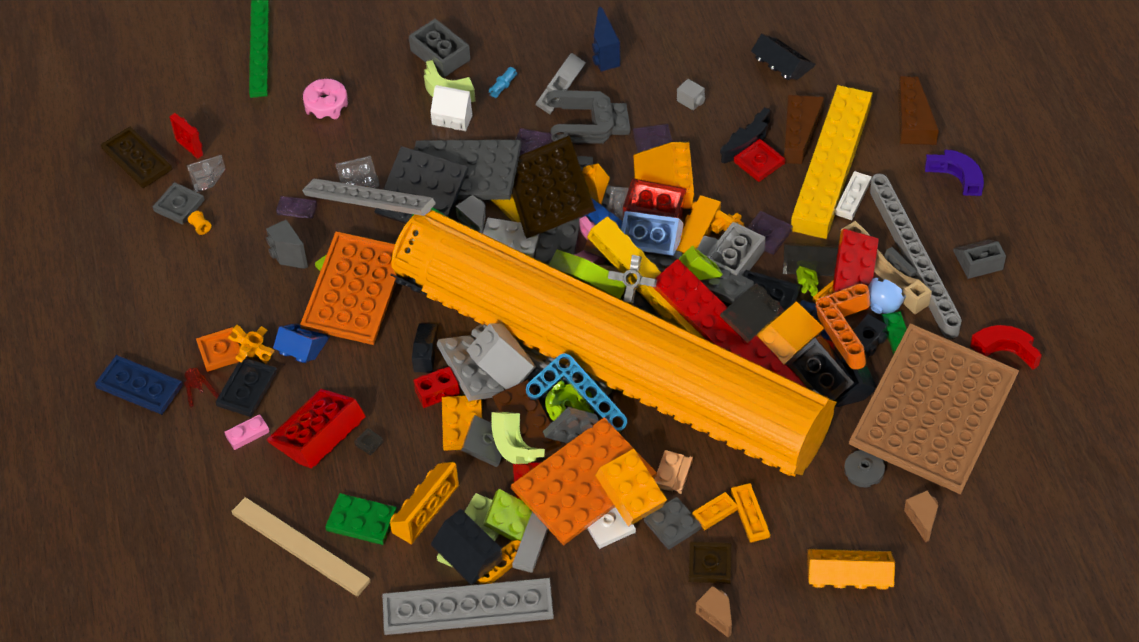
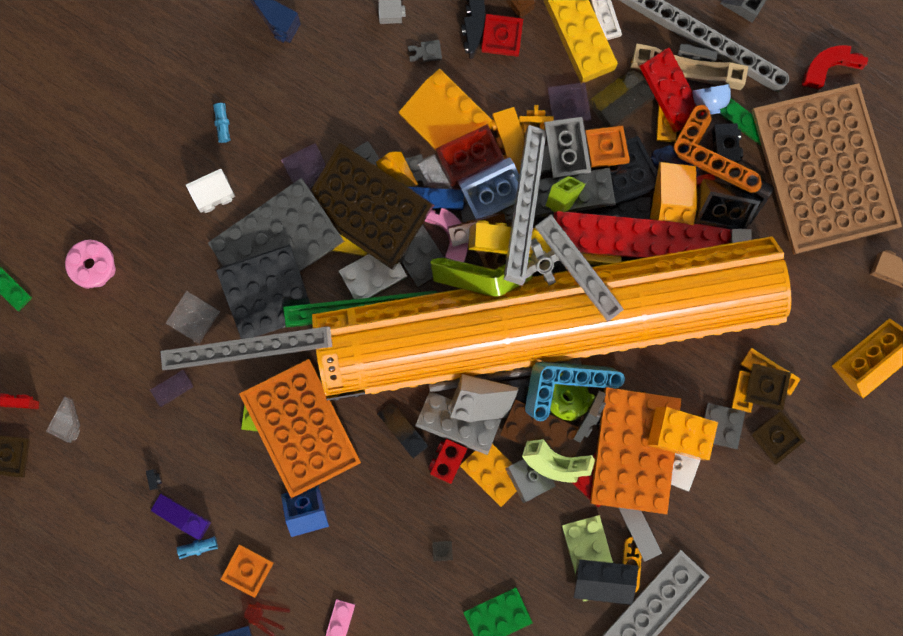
camera: 50 degrees left, 30 degrees up
(178, 203) = (72, 468): dark grey plate -> none
(197, 219) = (109, 471): light orange bush -> none
(203, 310) = (197, 547): none -> dark azure pin
(215, 286) = (181, 517): none -> dark purple slope
(222, 247) = (154, 479): none -> black plate
(246, 387) = (302, 585): black plate -> none
(251, 344) = (273, 556): light orange pin -> none
(286, 245) = (208, 438): dark grey slope -> none
(317, 427) = (391, 574): red slope -> none
(425, 502) = (535, 568): light orange slope -> none
(432, 79) = (184, 172): yellowish green arch -> none
(440, 45) = (138, 133): dark grey brick -> none
(472, 213) = (325, 278): light grey slope -> none
(508, 516) = (606, 526): lime plate -> none
(561, 80) = (275, 84): light grey slope -> none
(606, 116) = (344, 90): dark grey plate -> none
(651, 137) = (399, 82): clear purple plate -> none
(654, 296) = (579, 268): none -> light grey tile
(656, 239) = (525, 206): none -> light grey plate
(673, 471) = (685, 382): light nougat plate -> none
(694, 136) = (428, 51): none -> dark grey plate
(715, 609) = (816, 472): medium nougat slope -> none
(734, 514) = (767, 387): none -> dark brown plate
(752, 312) = (643, 207): clear smoke slope -> none
(766, 270) = (607, 146): none -> orange plate
(808, 280) = (639, 125): lime plate -> none
(864, 476) = (813, 272): dark grey plate -> none

